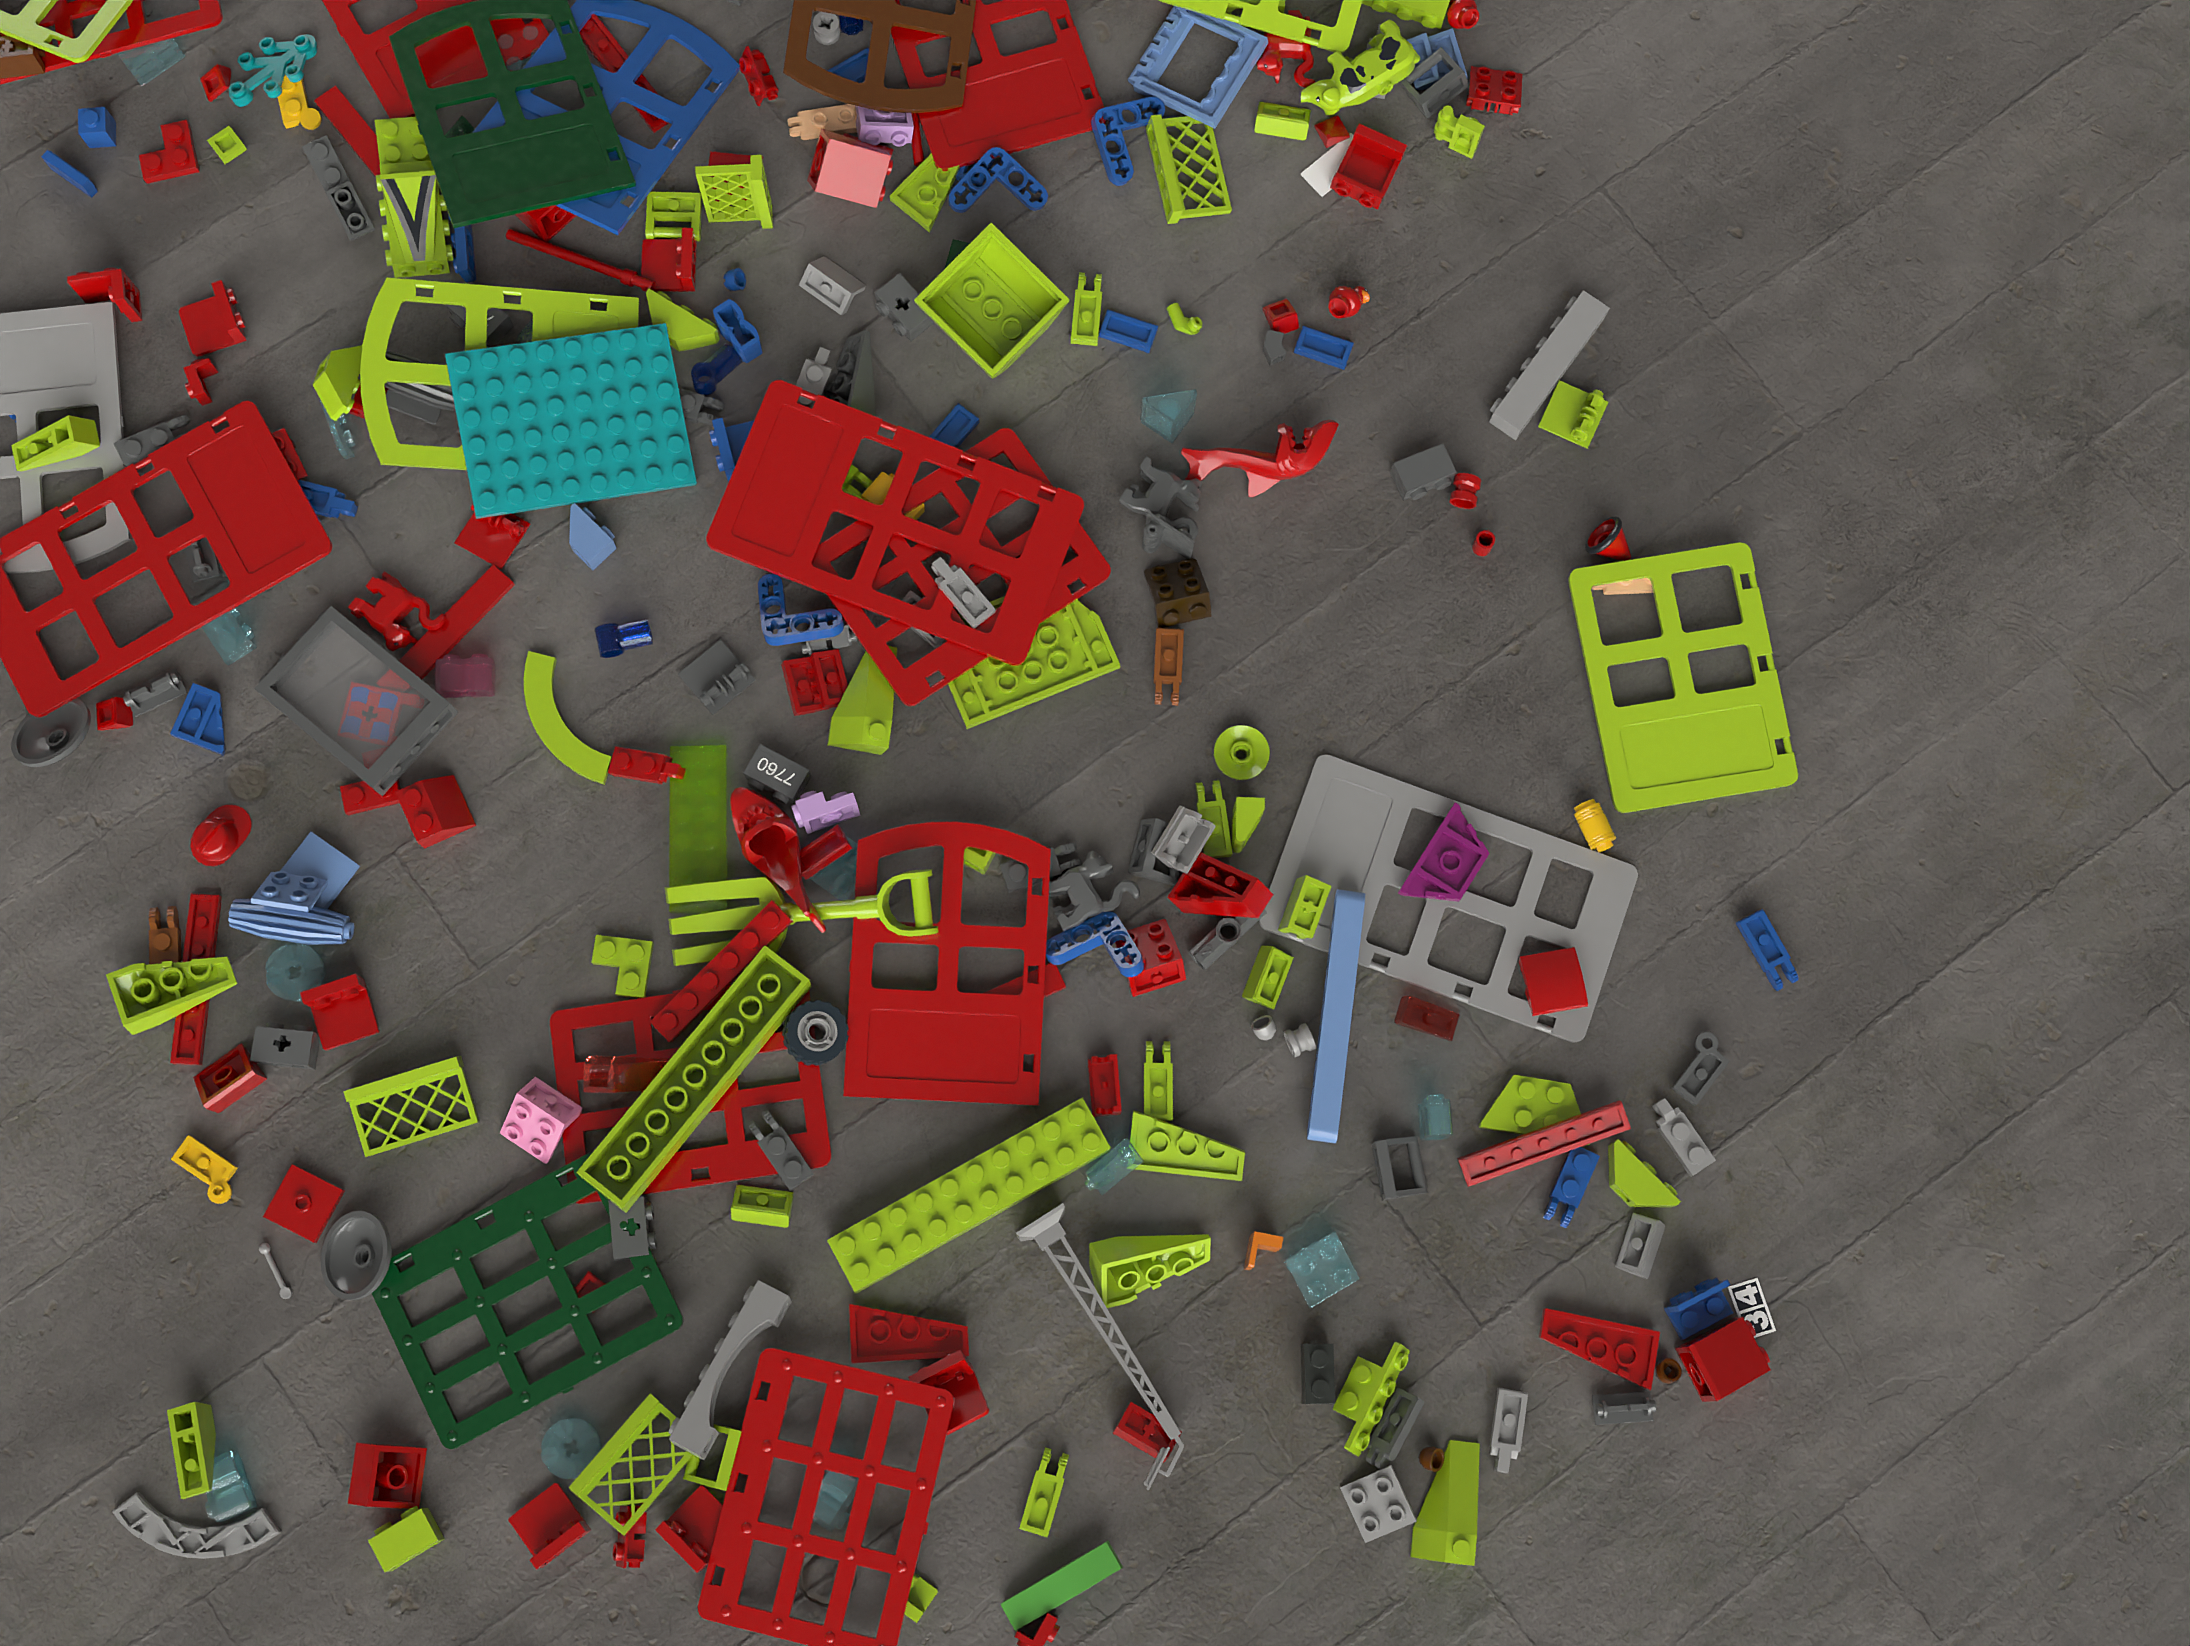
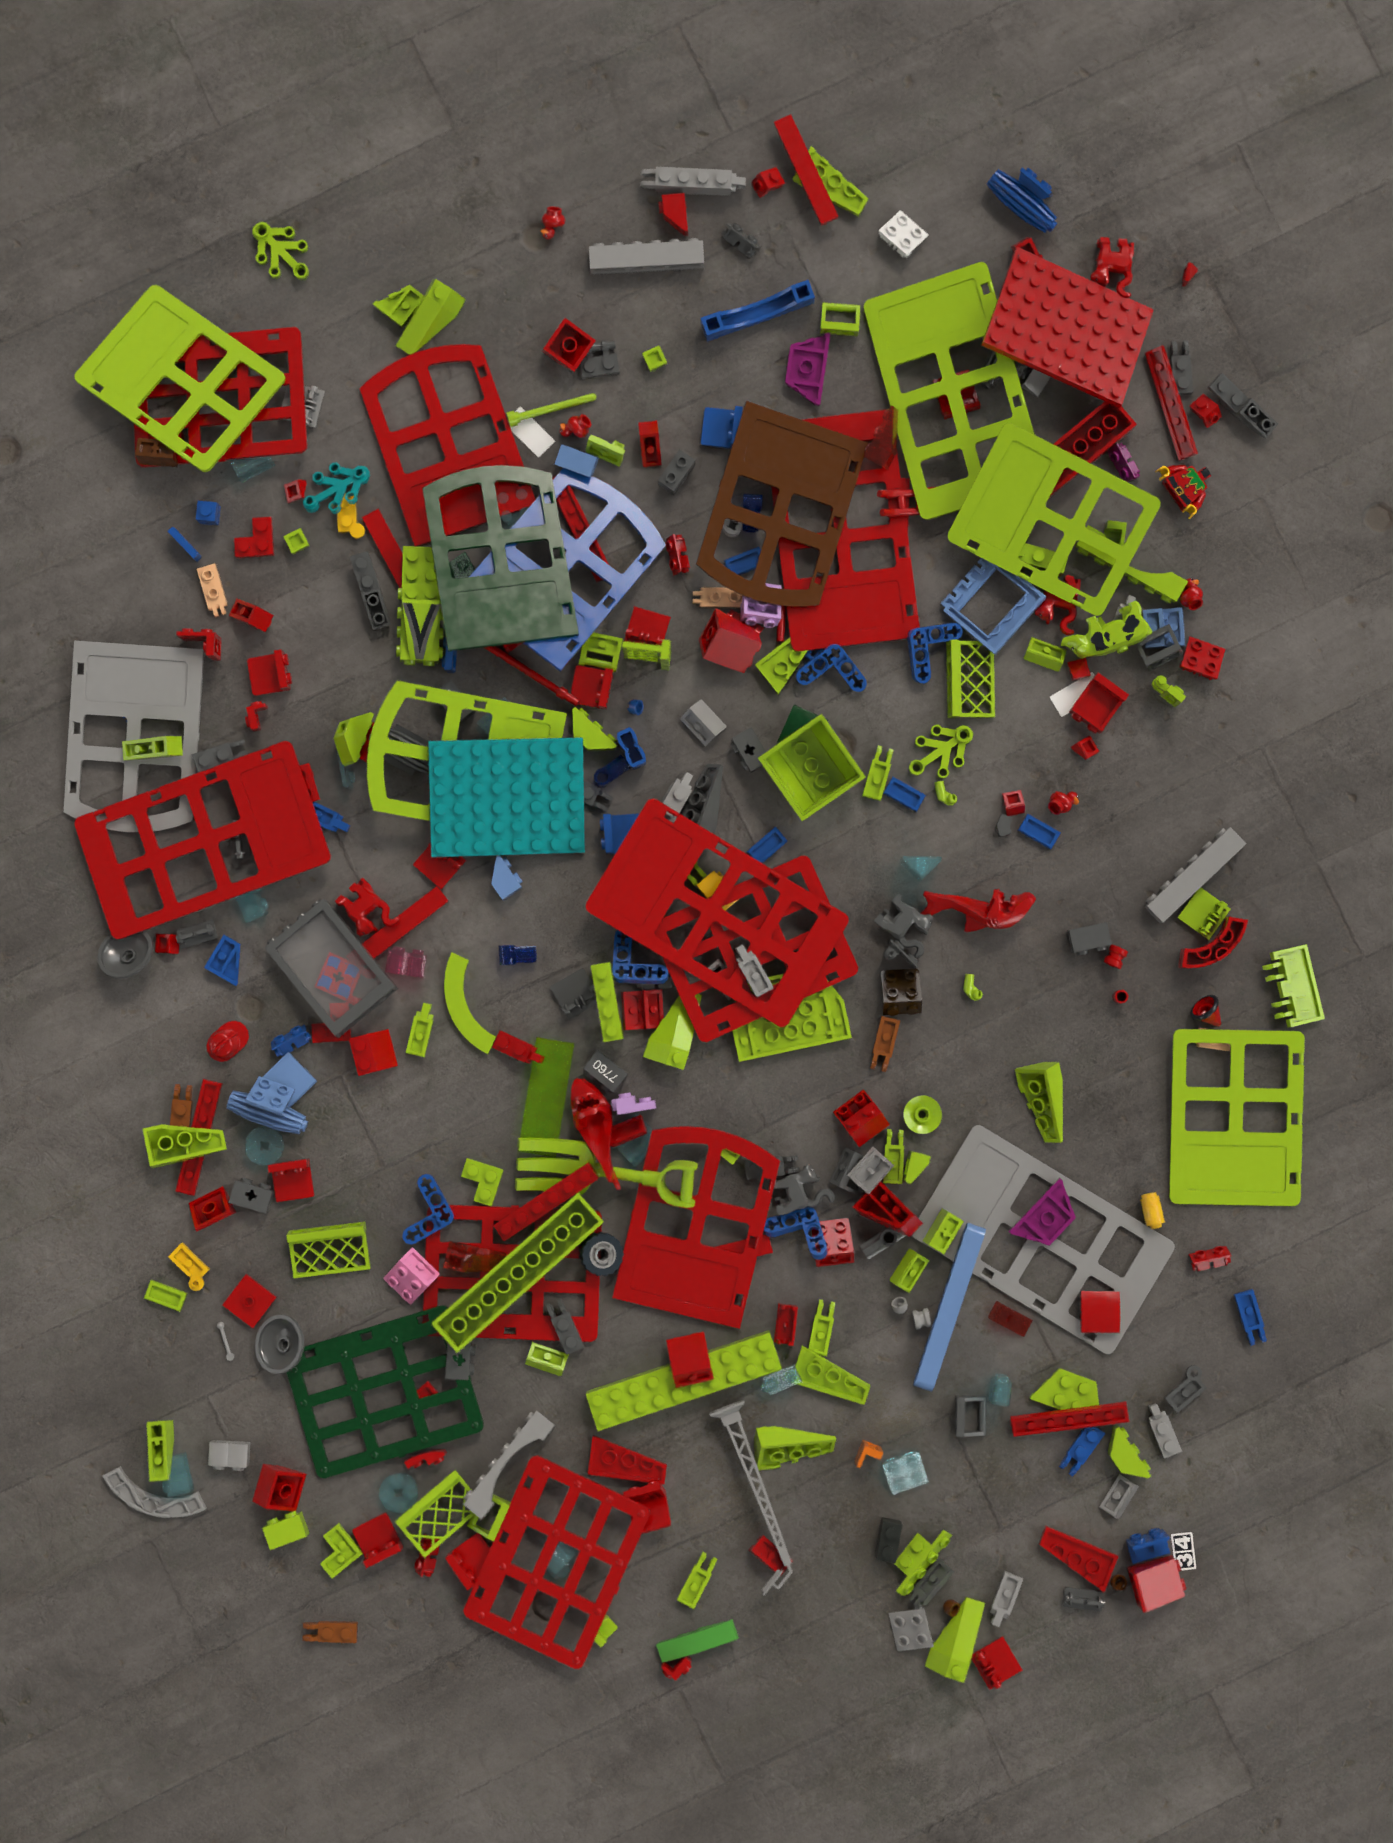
camera: 20 degrees right, 10 degrees up
(117, 227) = (212, 589): none -> light nougat hinge
(175, 1219) = (165, 1295): none -> lime tile
(177, 249) = (251, 615): none -> red slope
(303, 821) = (297, 1035): none -> blue hinge
(303, 1438) = (229, 1454): none -> light grey brick
(500, 768) = (420, 1031): none -> lime hinge
(502, 1555) = (344, 1550): none -> lime plate
(561, 1027) = (435, 1217): none -> blue beam
(612, 1383) = (431, 1456): none -> red slope
(762, 673) = (607, 1002): none -> lime arch
(973, 1159) = (689, 1359): none -> red panel
(1156, 773) = (861, 1118): none -> red slope
(1168, 262) = (943, 749): none -> lime plant
(1272, 571) = (970, 990): none -> lime arm
(1363, 228) = (1085, 748): none -> red slope
(1407, 694) = (1044, 1091): none -> lime wedge
(1515, 1530) = (996, 1663): none -> red hinge
(1591, 463) = (1218, 948): none -> red brick
(1702, 873) = (1218, 1255): none -> red hinge
(1720, 480) = (1298, 986): none -> lime hinge

